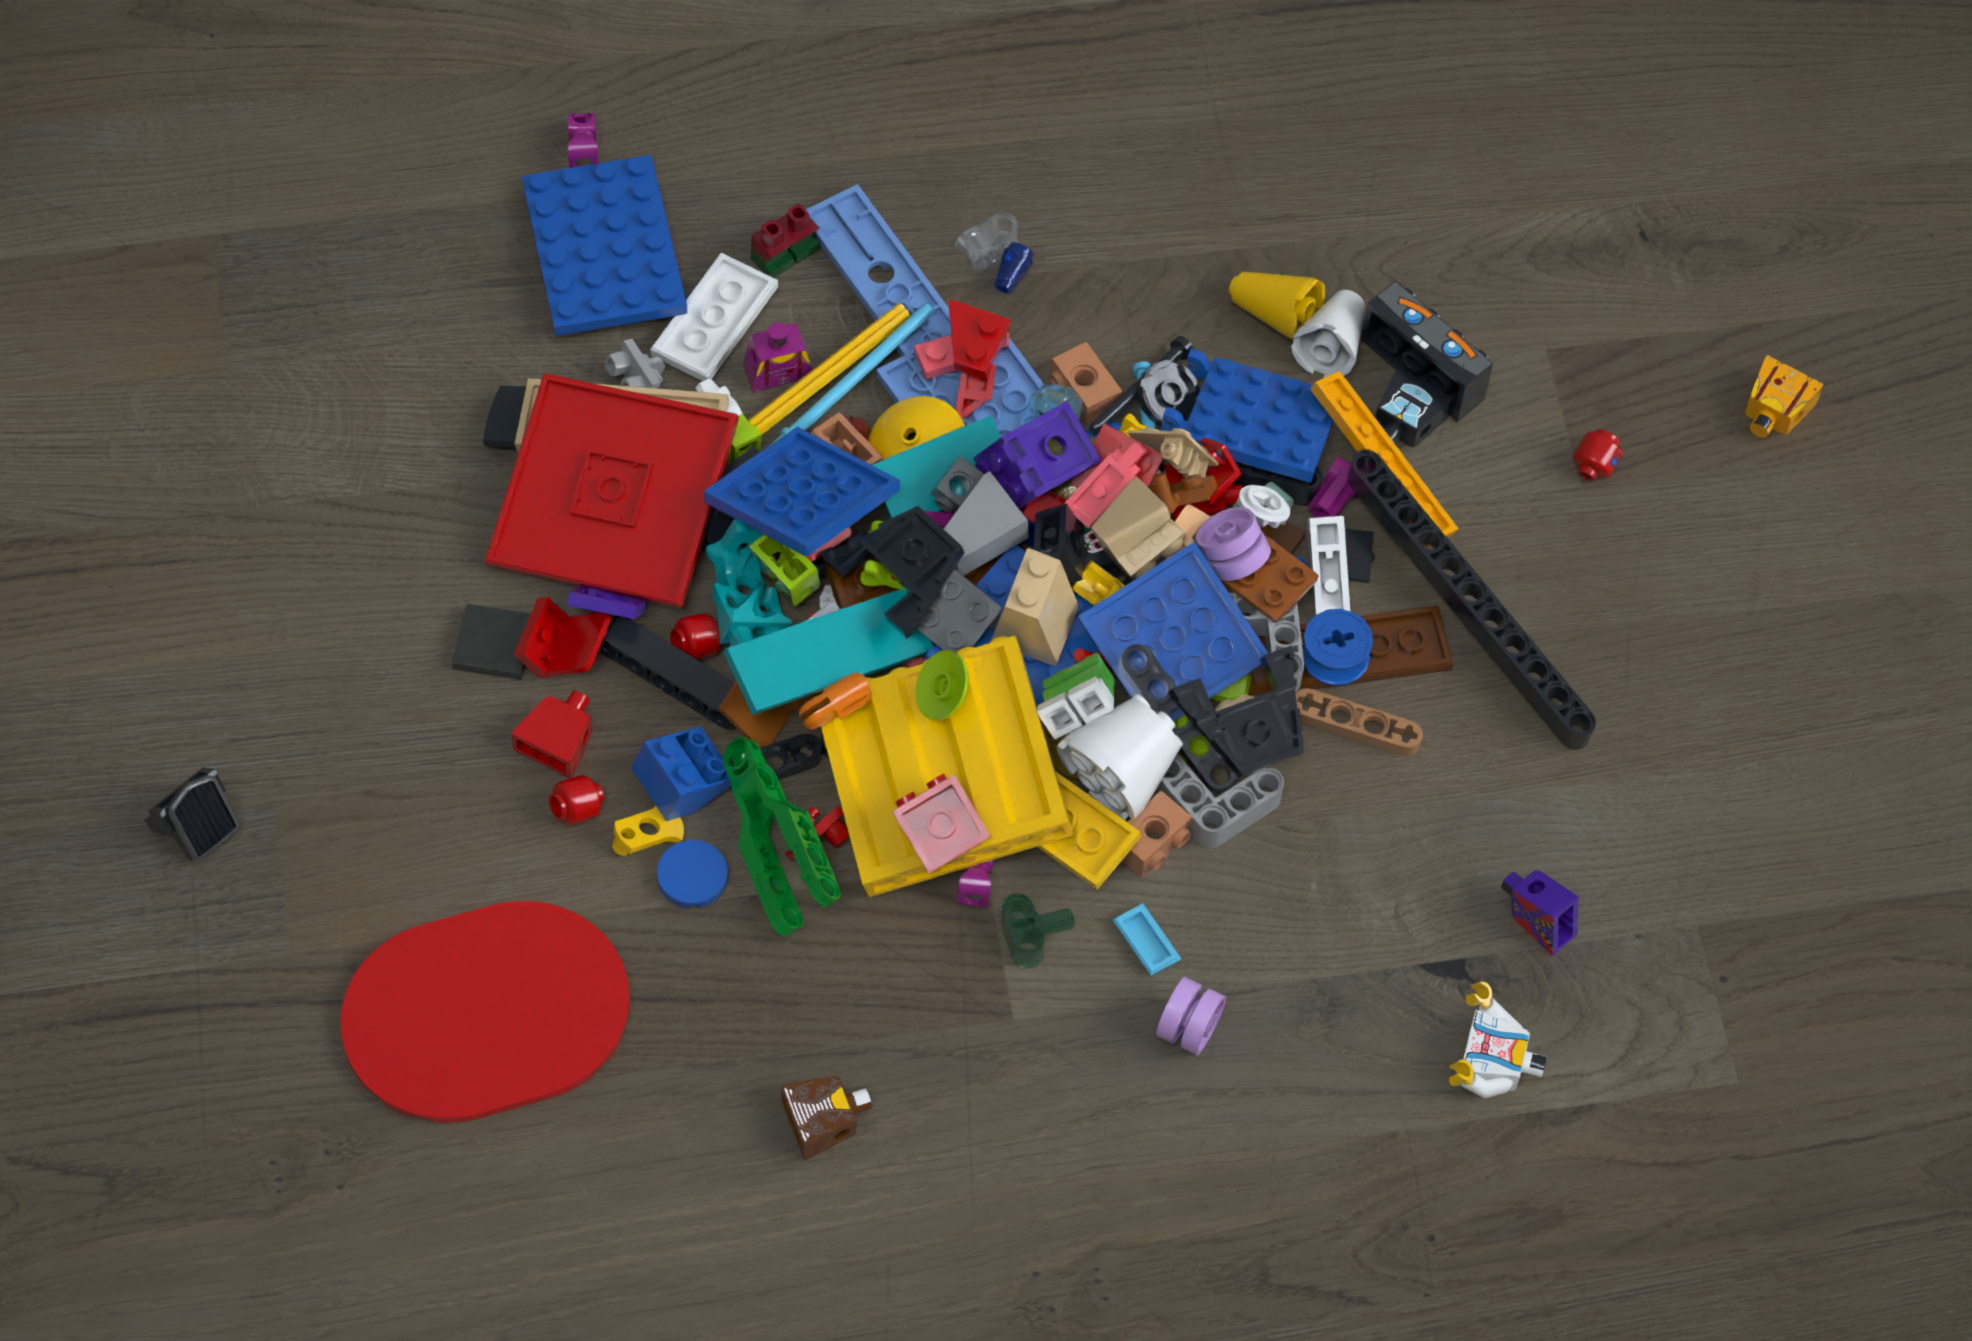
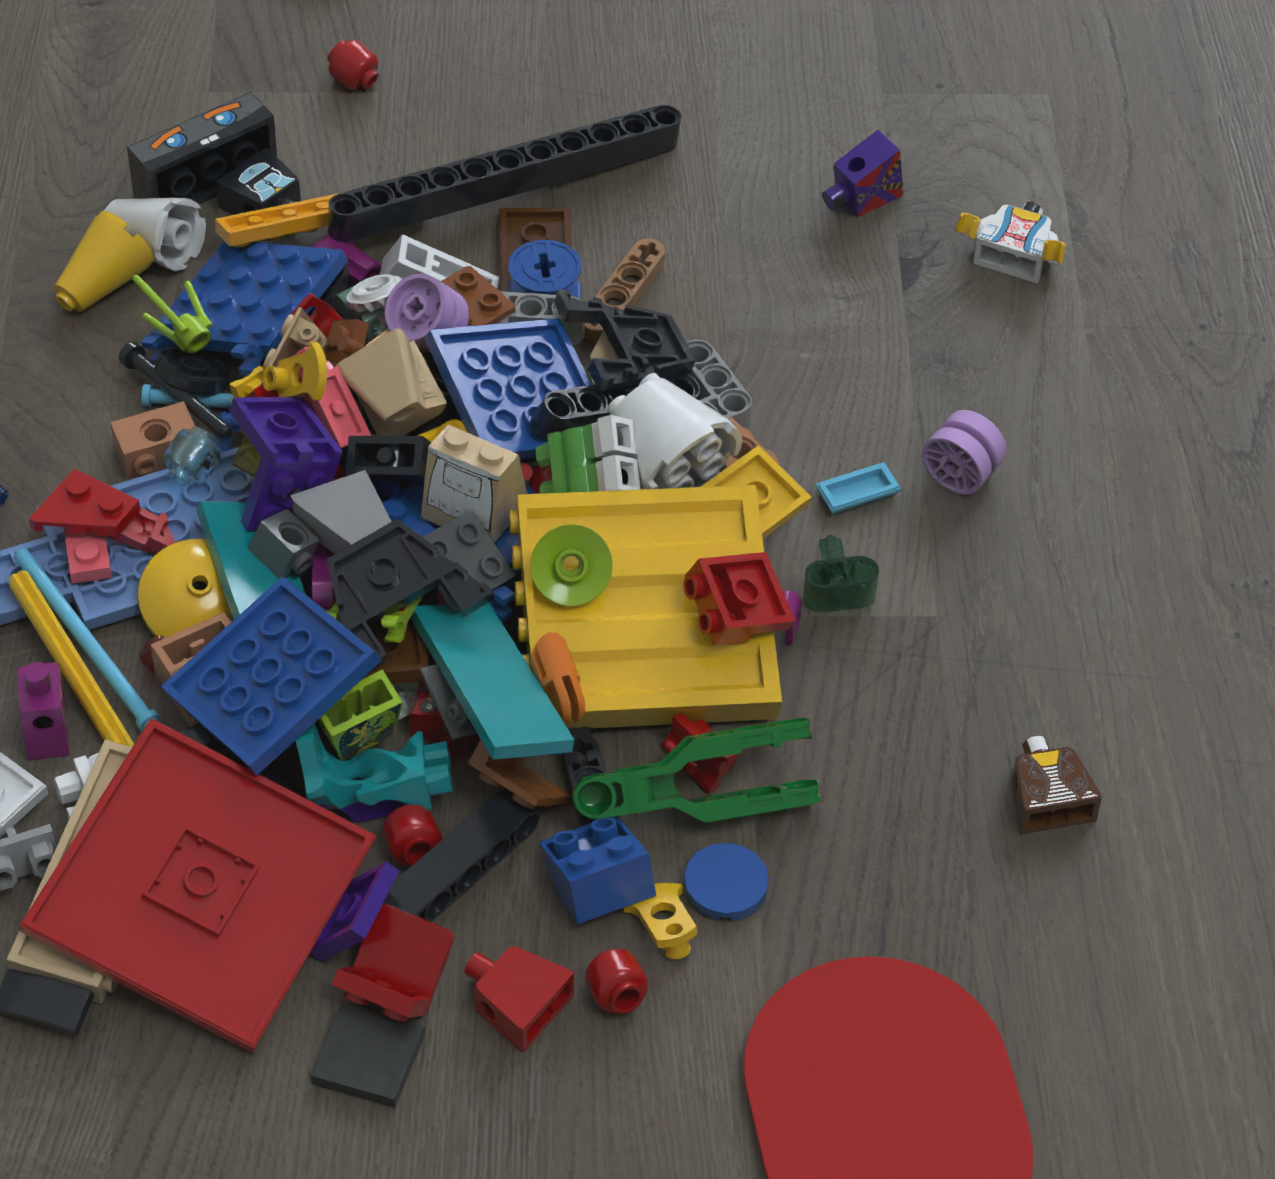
camera: 80 degrees left, 10 degrees down
(1113, 441) = (286, 375): none -> yellow piece
(1197, 373) = (190, 331): none -> lime plant

